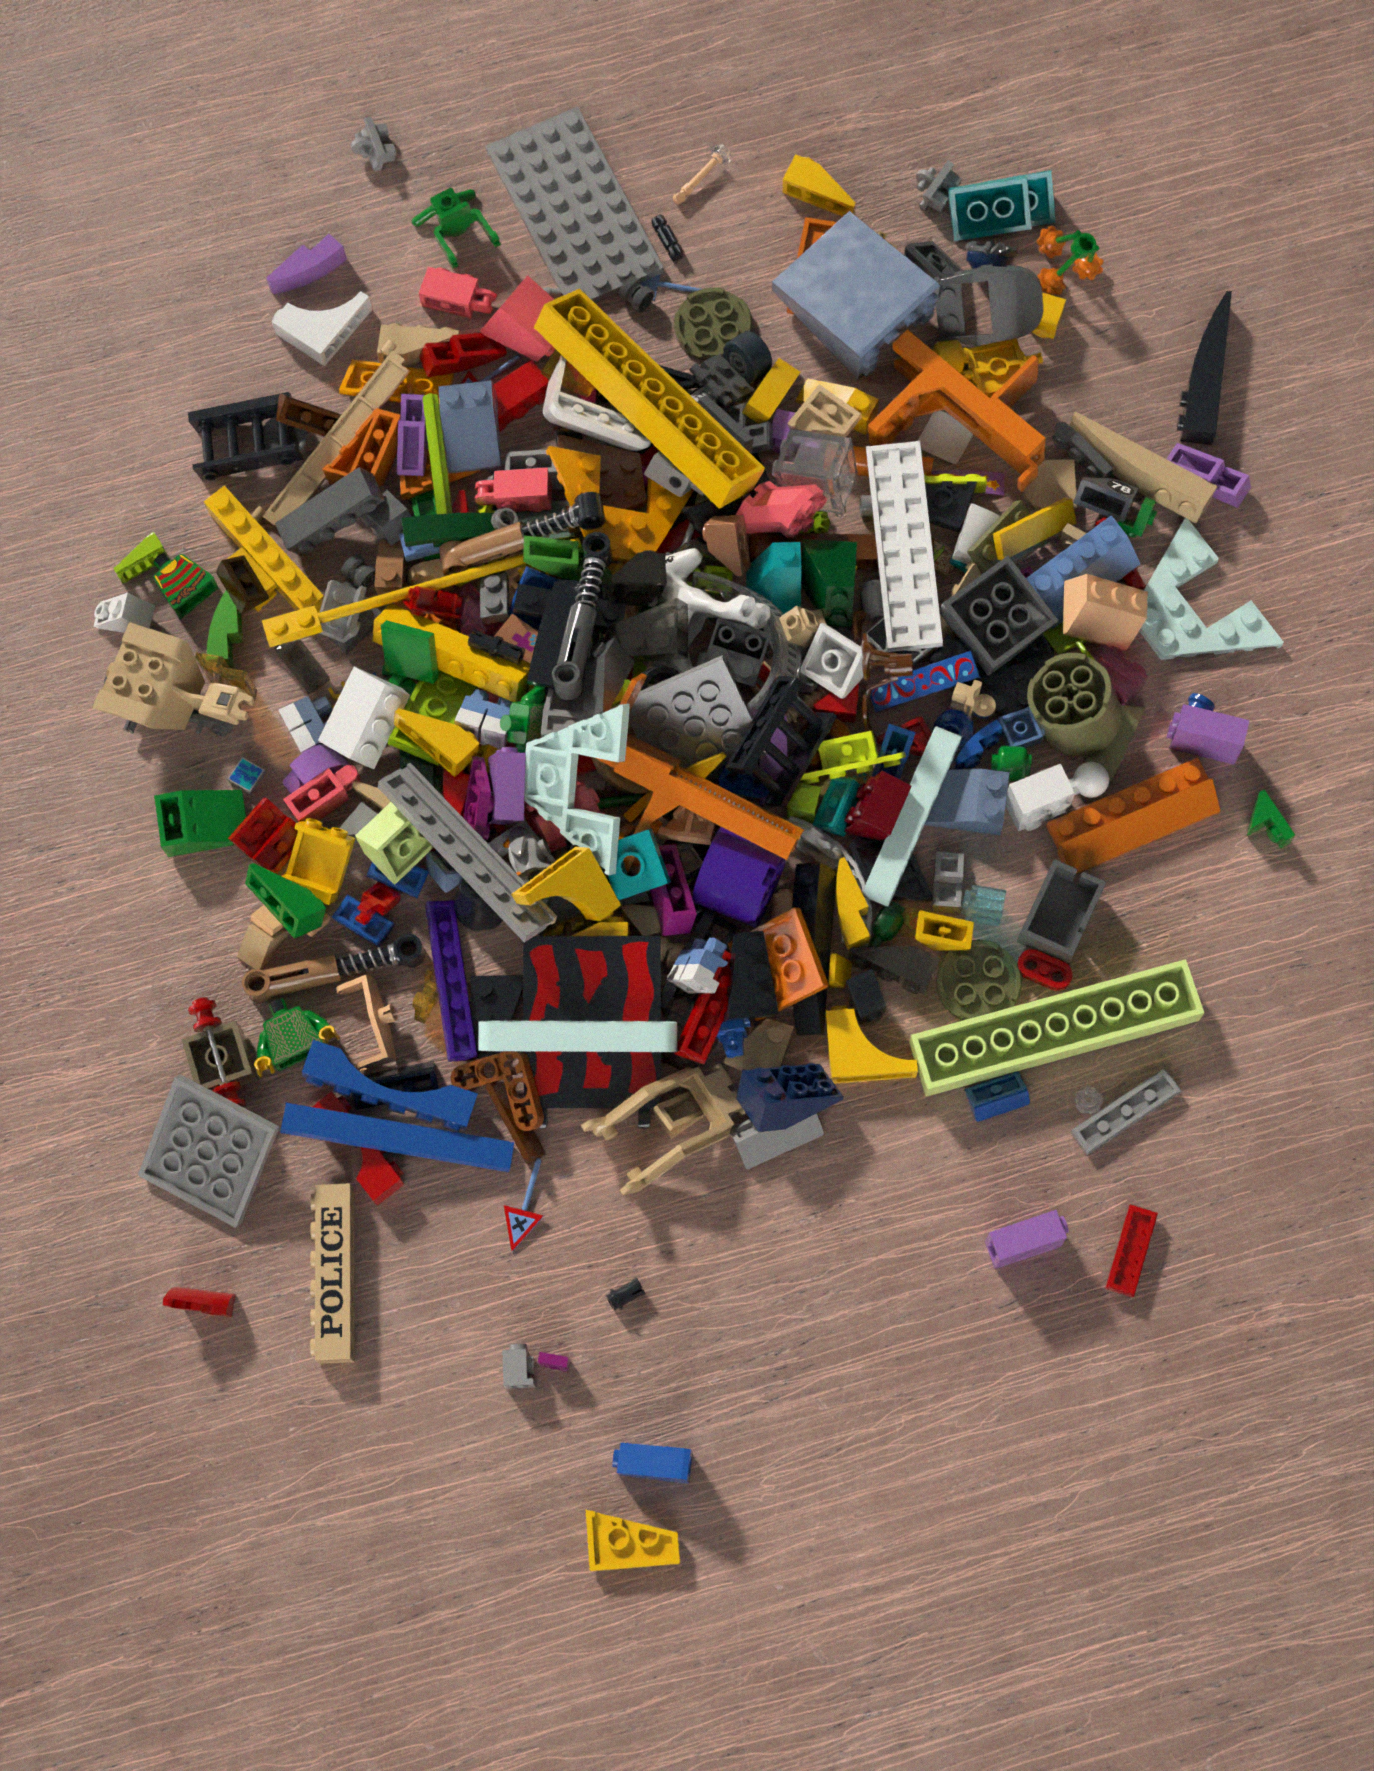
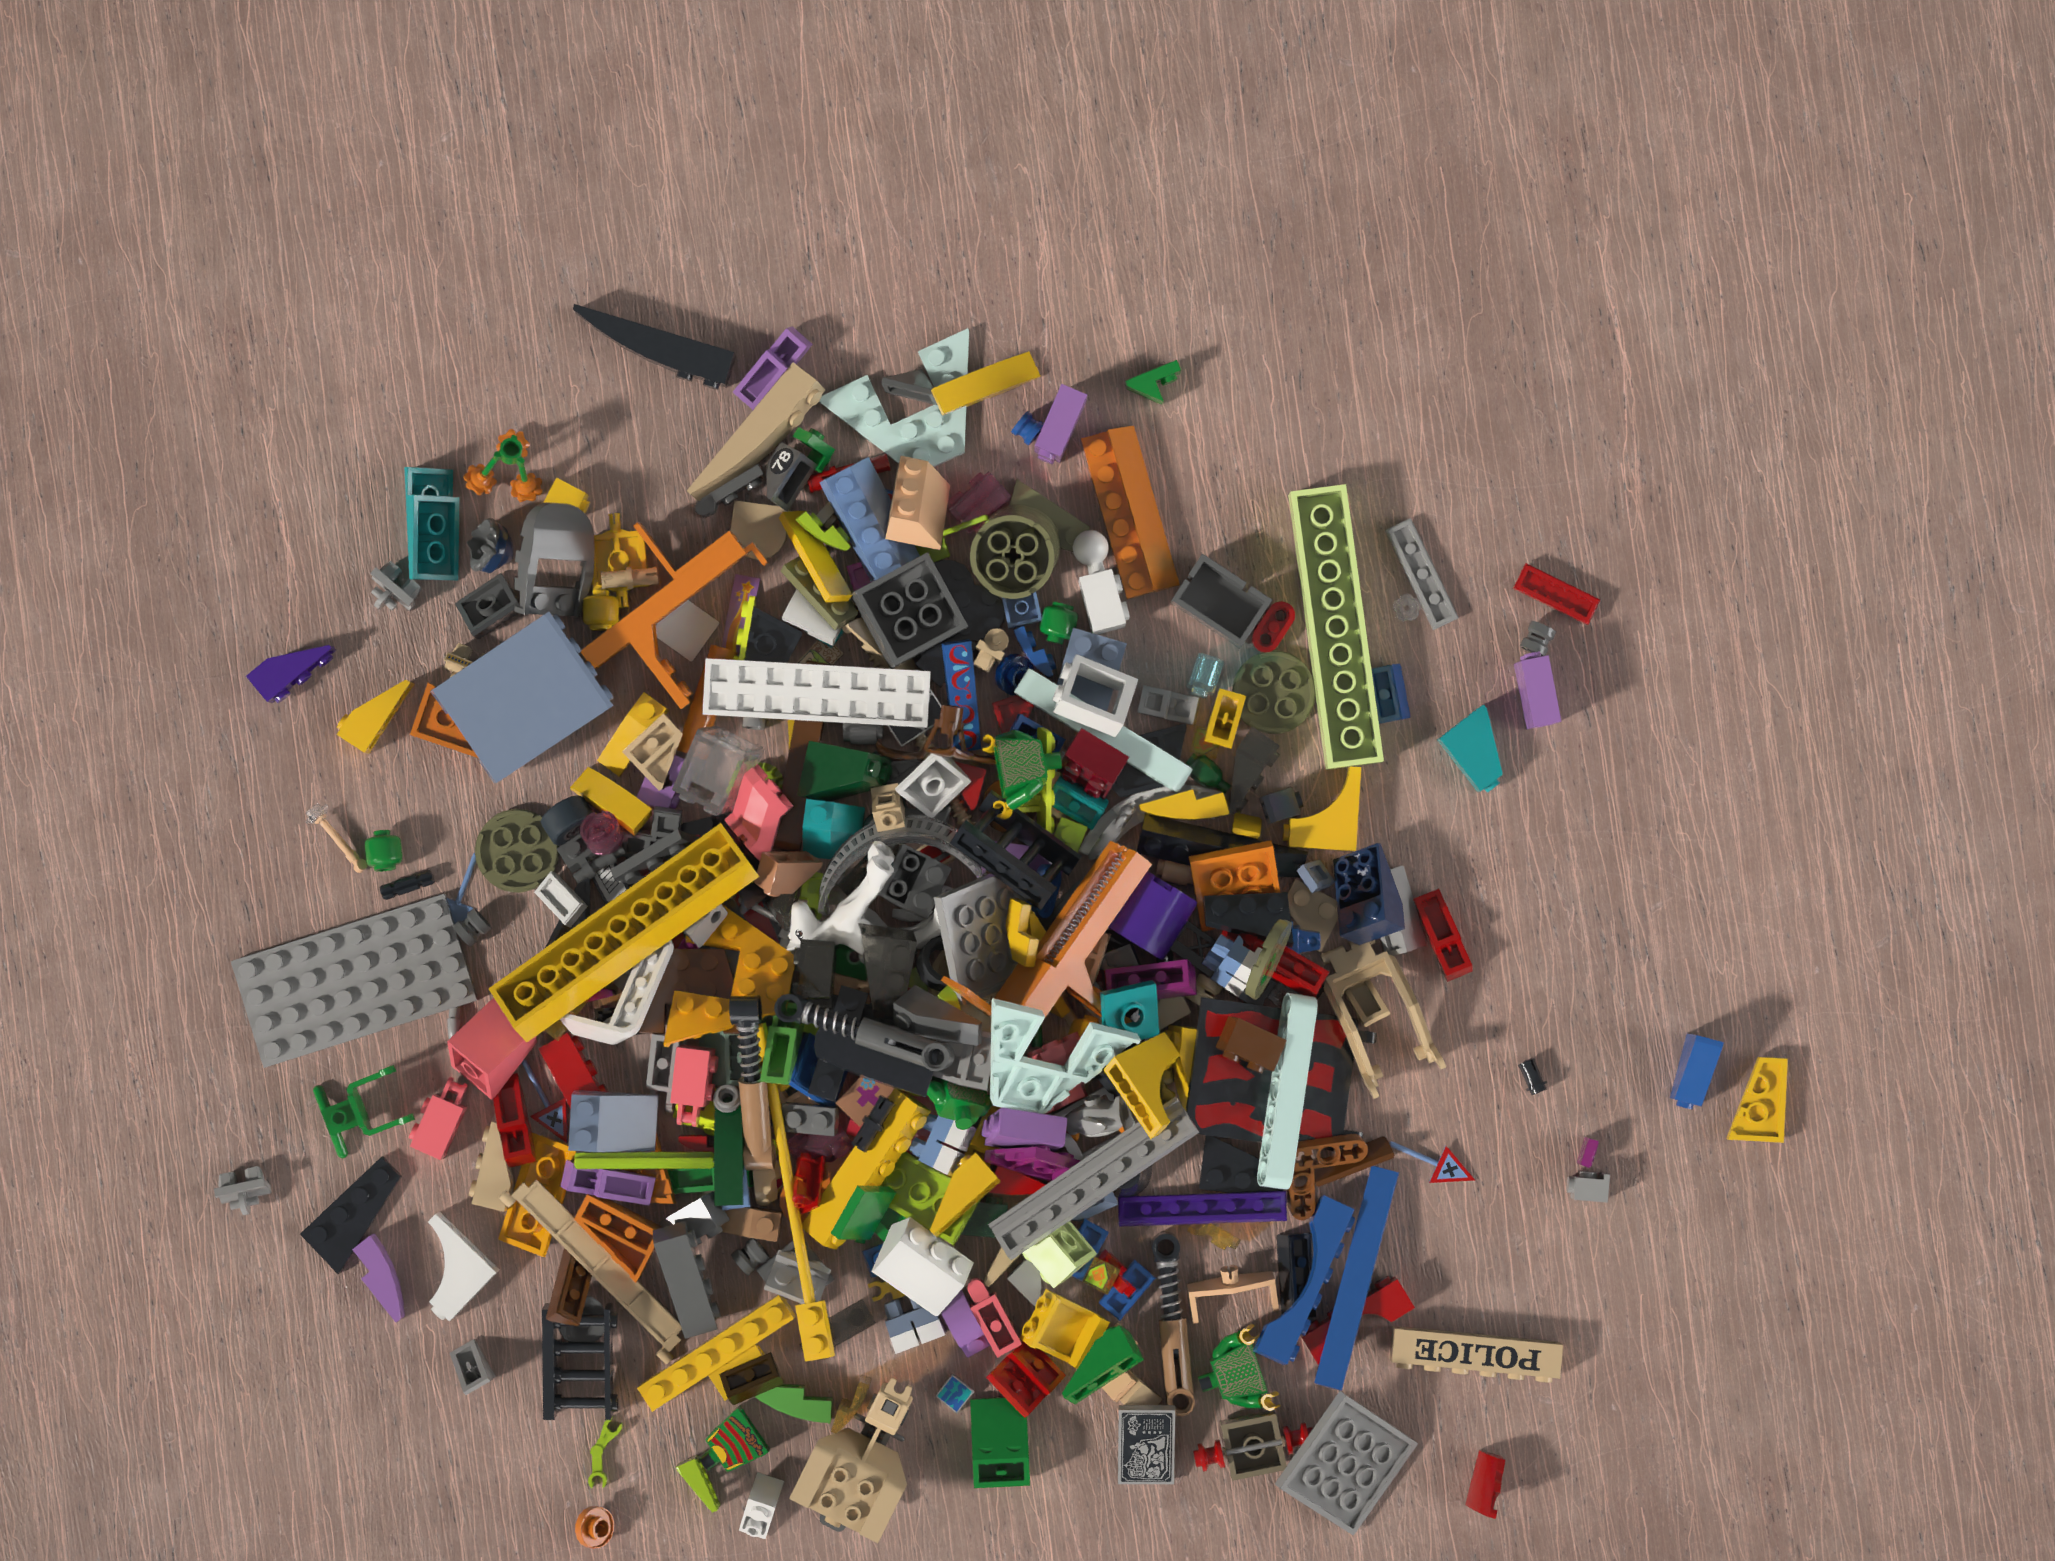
camera: 90 degrees left, 15 degrees up
(92, 473) = (594, 1527): none -> orange plate
(163, 469) = (597, 1451): none -> lime piece
(211, 957) = (1146, 1444): none -> tile
(230, 351) = (471, 1367): none -> light grey slope
(362, 236) = (351, 1215): none -> black wing
(373, 889) = (1101, 1275): none -> tile
(619, 988) = (1250, 1044): none -> reddish brown brick
(676, 359) = (560, 899): none -> white tile
(693, 751) = (1022, 944): none -> yellow tile
(695, 210) = (383, 851): none -> green head
(708, 987) = (1268, 958): none -> olive tile
(739, 380) = (598, 841): none -> clear pink wheel
(758, 1182) = (1443, 935): none -> red slope
(799, 1044) = (1315, 876): none -> sand blue plate
(843, 108) = (282, 672): none -> dark purple slope
(861, 732) = (1020, 768): none -> green torso
(924, 791) = (1087, 714): none -> white window
(955, 1186) = (1474, 749): none -> teal slope
(983, 371) = (629, 577): none -> tan pin
(1057, 535) = (832, 537): none -> lime slope
(1075, 1234) = (1535, 643): none -> dark grey wheel
(1216, 598) = (910, 385): none -> dark grey slope
(1235, 661) = (985, 383): none -> yellow slope

